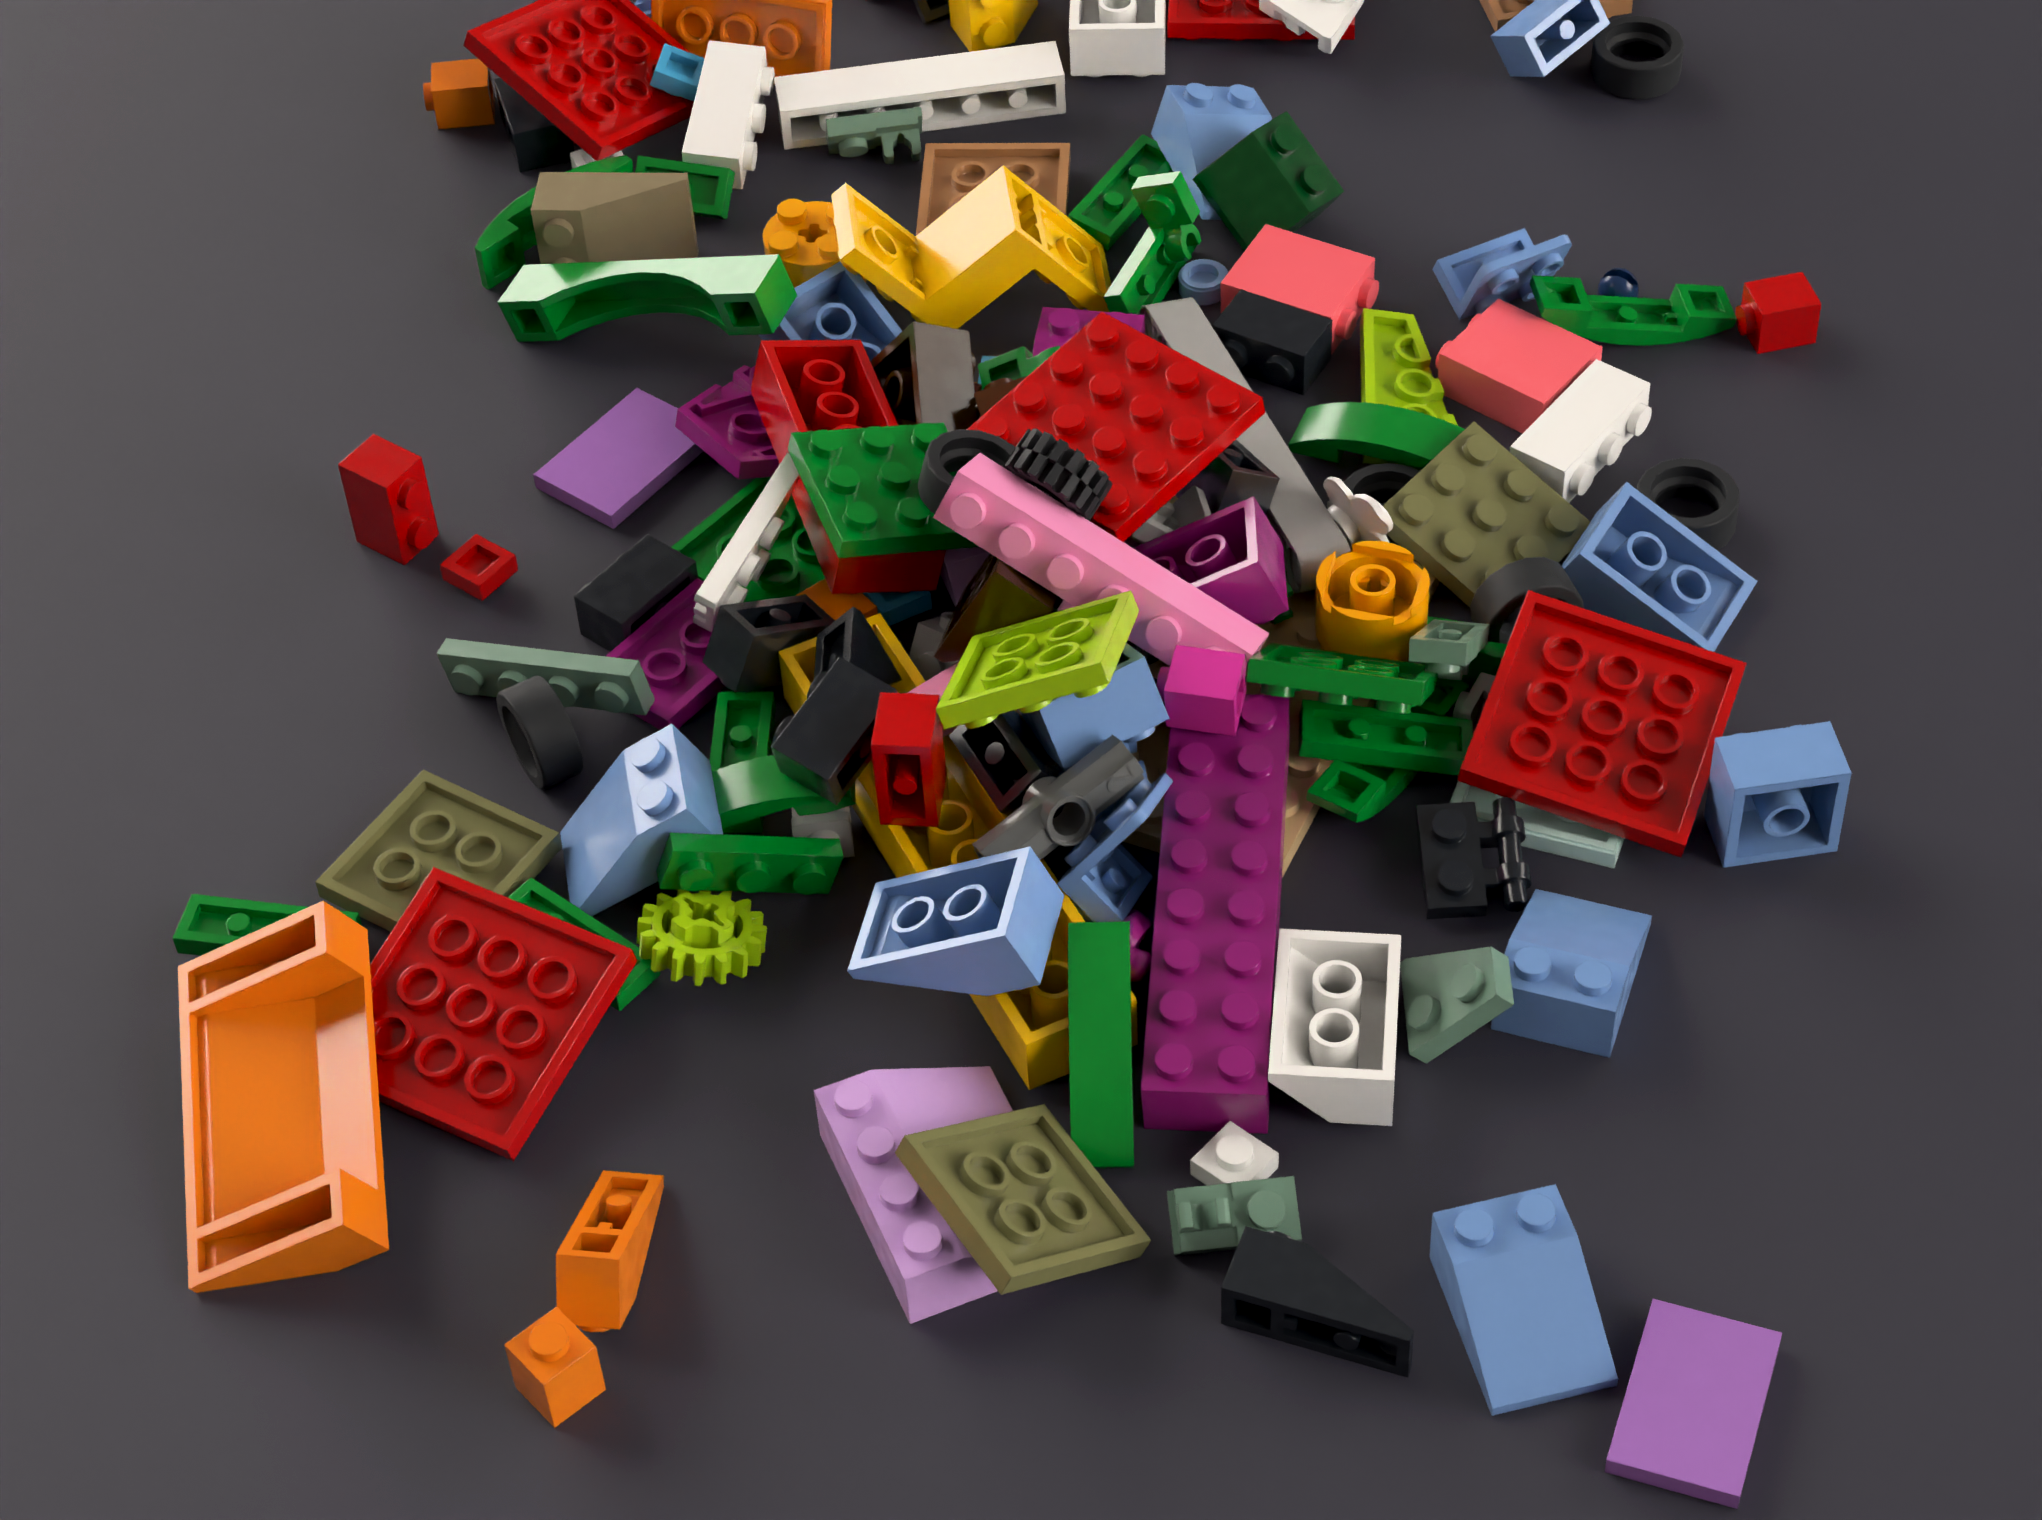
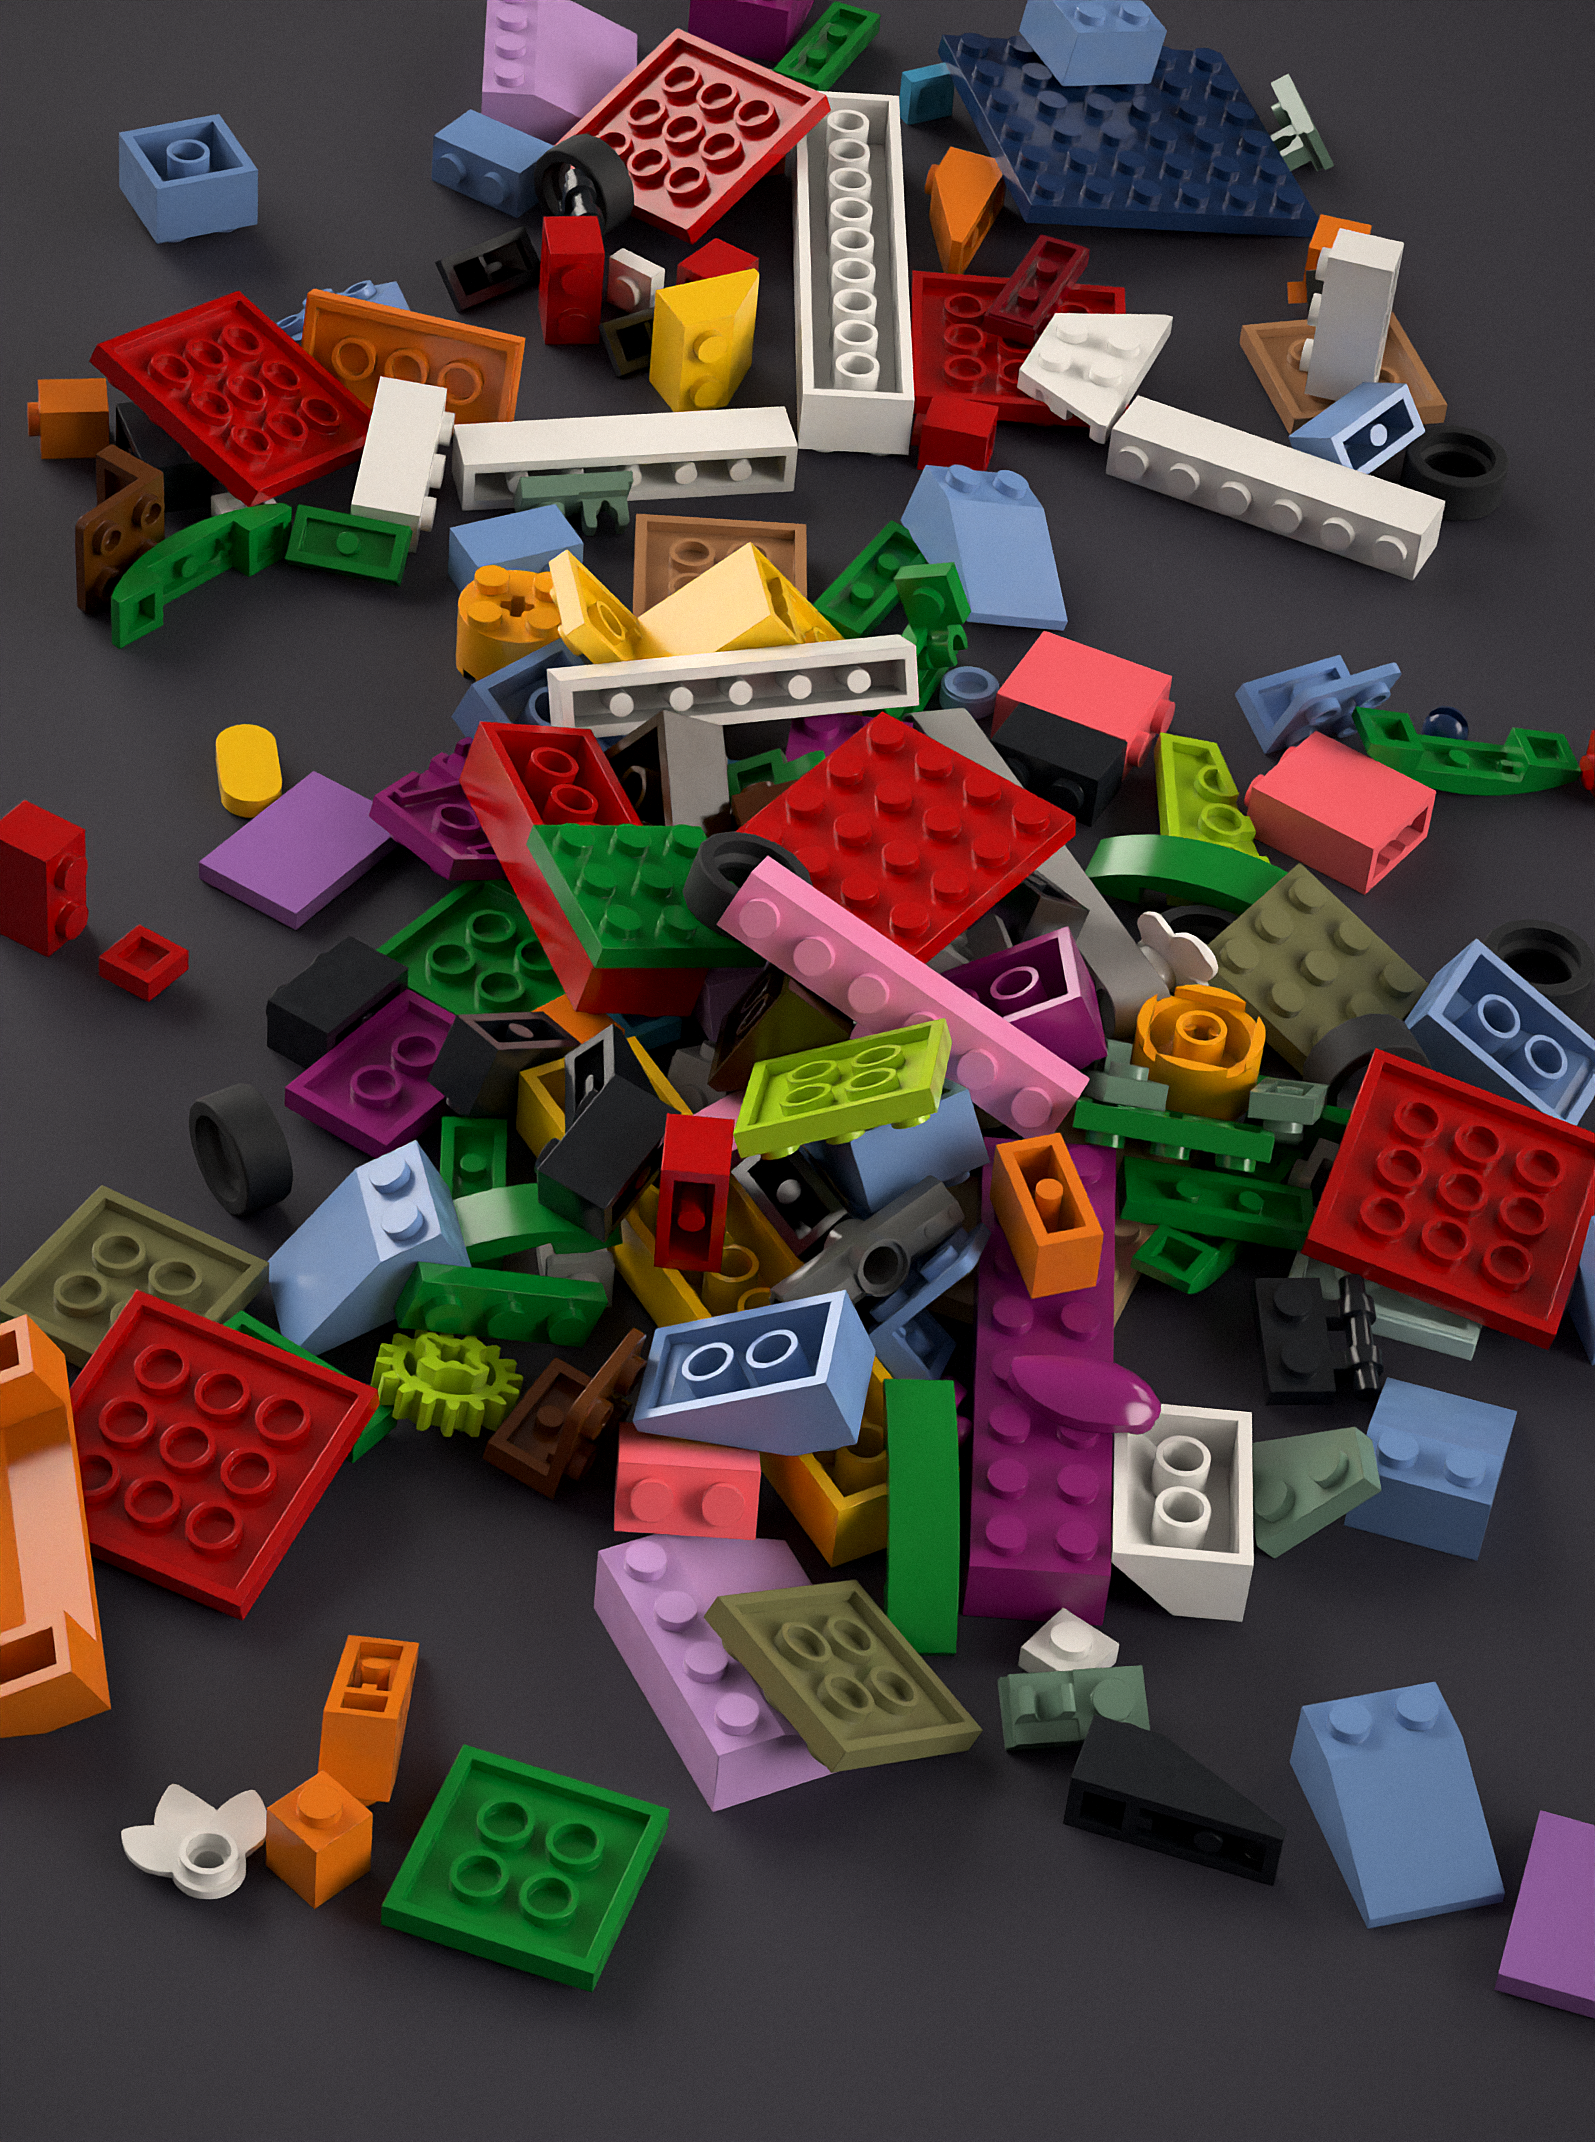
camera: 10 degrees left, 5 degrees down
(454, 1364) = (198, 1844): none -> white plate
(483, 186) = (120, 526): none -> reddish brown bracket
(575, 677) = (297, 1092): sand green plate -> none
(583, 389) = (248, 769): none -> yellow tile
(613, 217) = (274, 582): dark tan slope -> none
(677, 72) = (342, 411): dark azure plate -> none
(731, 291) = (431, 665): green arch -> none
(737, 1386) = (526, 1868): none -> green plate
(745, 553) = (473, 966): white wing -> none
(800, 964) = (564, 1416): none -> reddish brown bracket
(820, 175) = (511, 541): none -> medium blue brick
(893, 1028) = (684, 1486): none -> coral brick
(990, 292) = (737, 685): none -> white brick
(1059, 472) = (858, 881): black tyre -> none
(1203, 689) = (1022, 1114): dark pink brick -> none
(1204, 54) = (955, 433): none -> red brick
(1215, 766) = (1046, 1215): none -> orange brick
(1247, 927) = (1084, 1393): none -> magenta arm
(1268, 180) = (1045, 581): dark green slope -> none
(1299, 633) = (1123, 1083): none -> sand green plate
(1479, 82) = (1275, 487): none -> white brick
(1585, 428) = (1420, 879): white brick -> none

